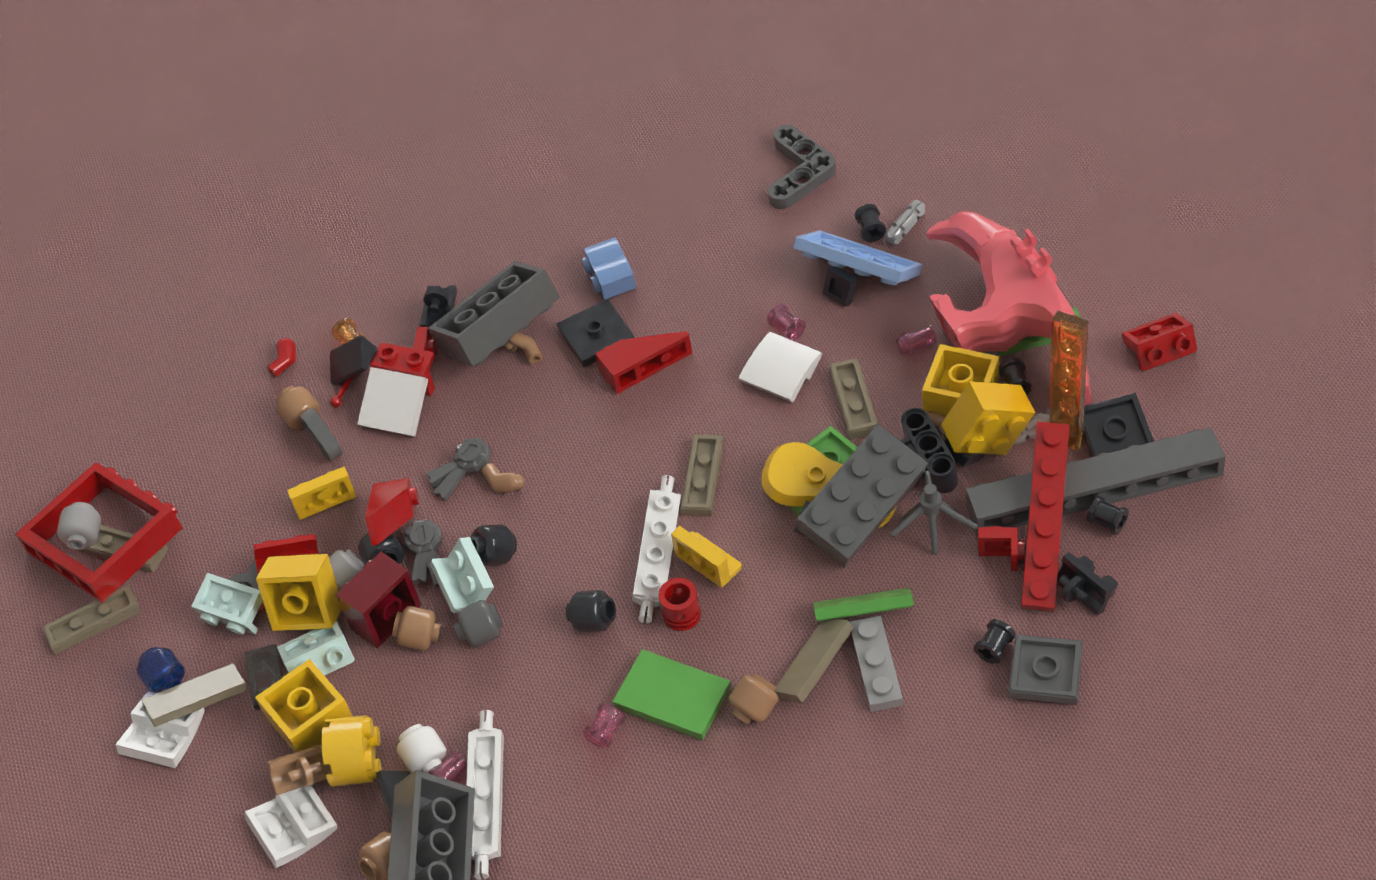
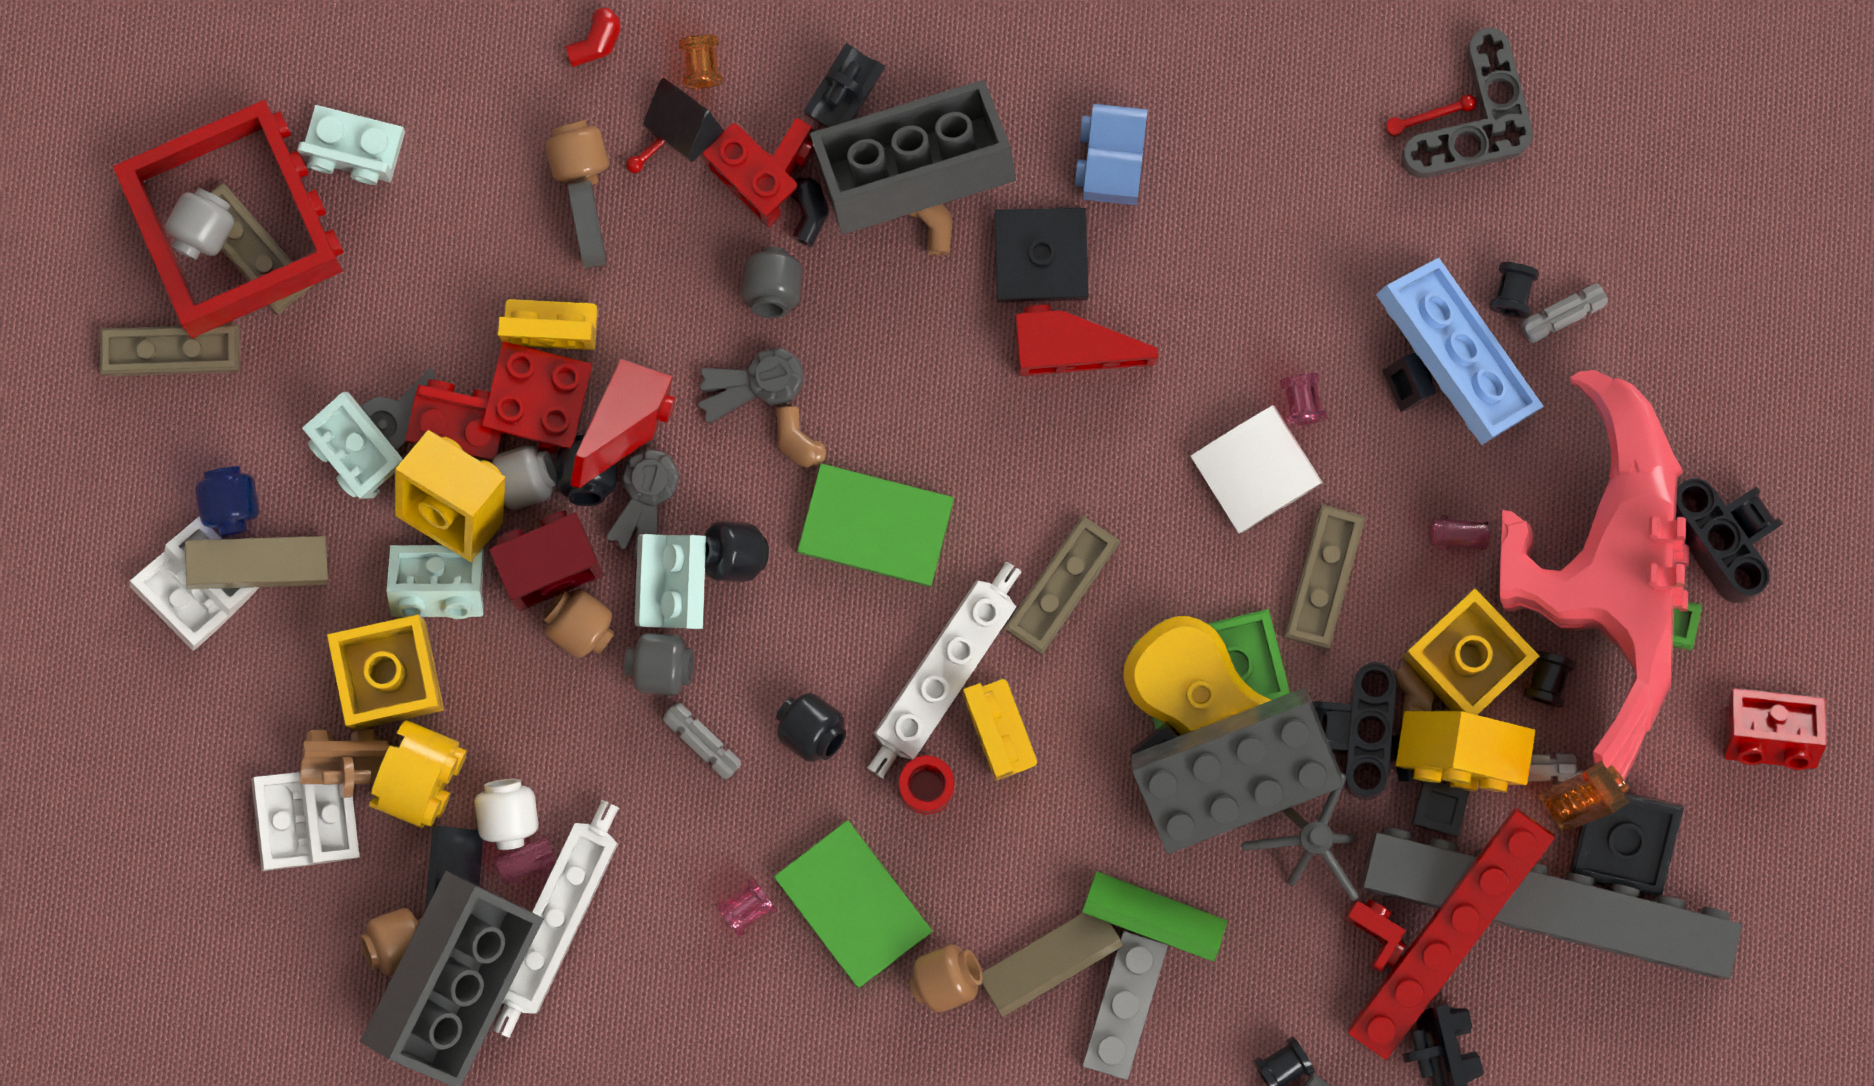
camera: 15 degrees right, 30 degrees up
(161, 468) = (352, 145): none -> light aqua bracket
(263, 670) = (359, 576): clear smoke tile -> none
(331, 524) = (537, 396): none -> red hinge
(392, 401) = (708, 224): white tile -> none
(445, 412) = (771, 282): none -> dark grey head
(451, 371) = (814, 210): none -> black arm
(527, 655) = (702, 740): none -> light grey axle
(573, 499) = (875, 525): none -> bright green tile
(758, 192) = (1396, 126): none -> red hinge
(995, 466) = (1440, 808): none -> black plate
(1074, 271) = (1739, 525): none -> black piece
(1107, 515) = (1534, 964): black bush -> none

